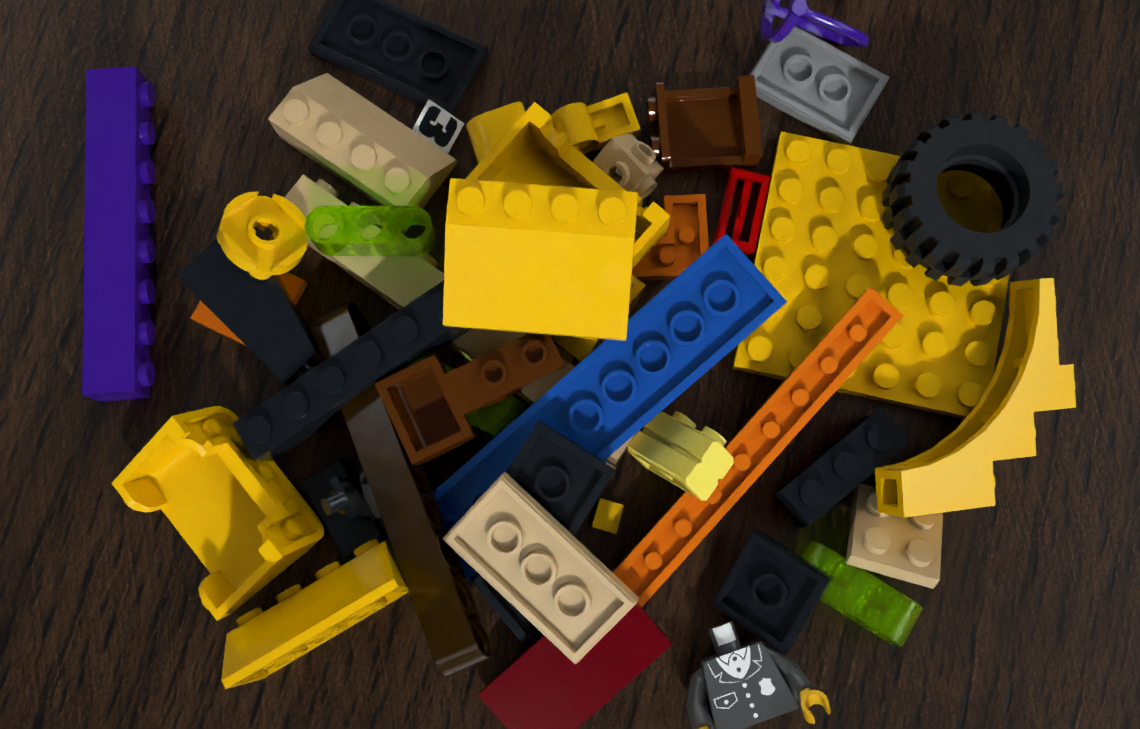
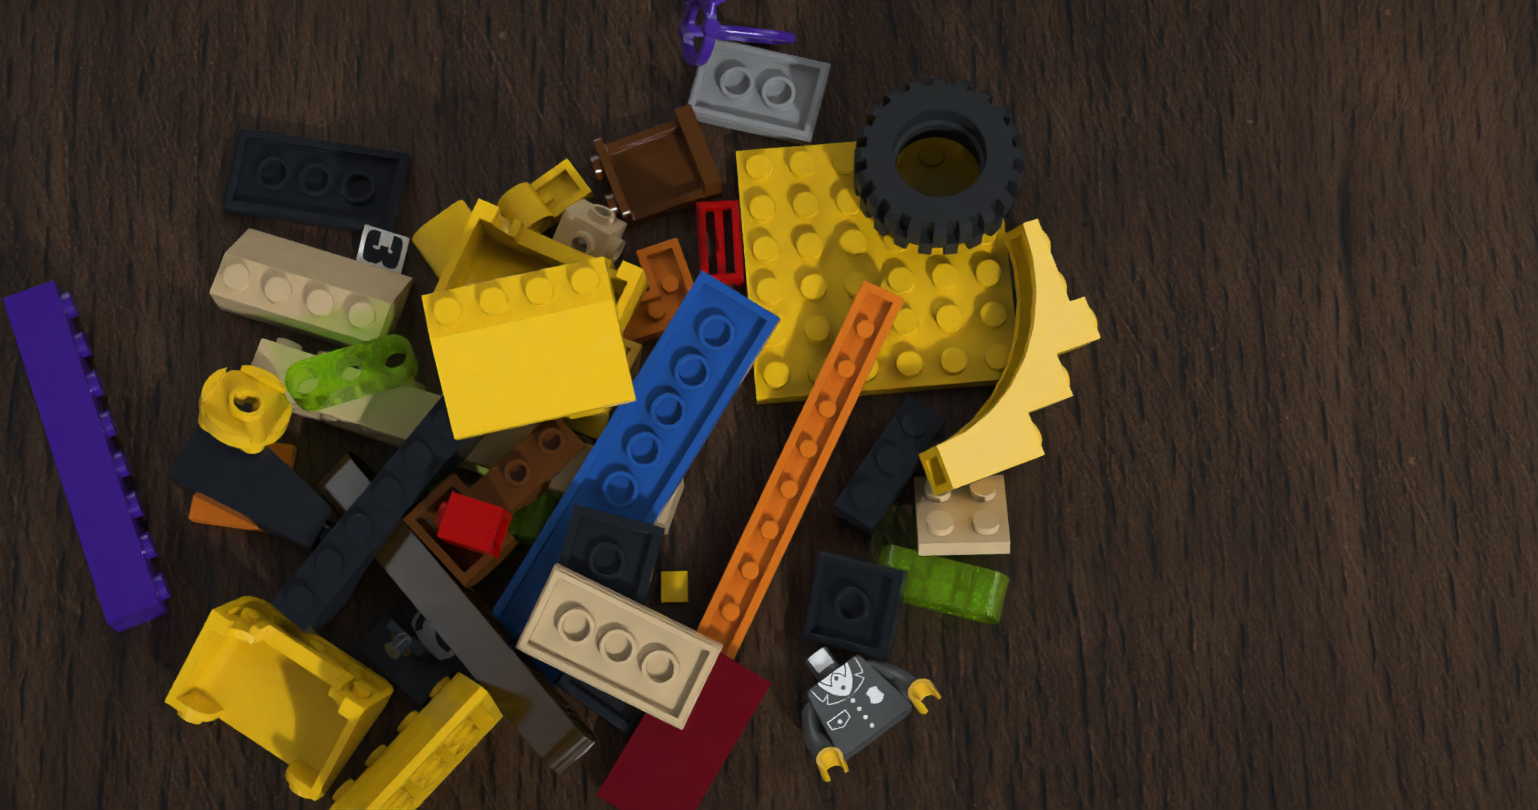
camera: 15 degrees left, 5 degrees down
(435, 412) = (473, 524): none -> red brick
(682, 453) = (726, 498): light yellow brick -> none

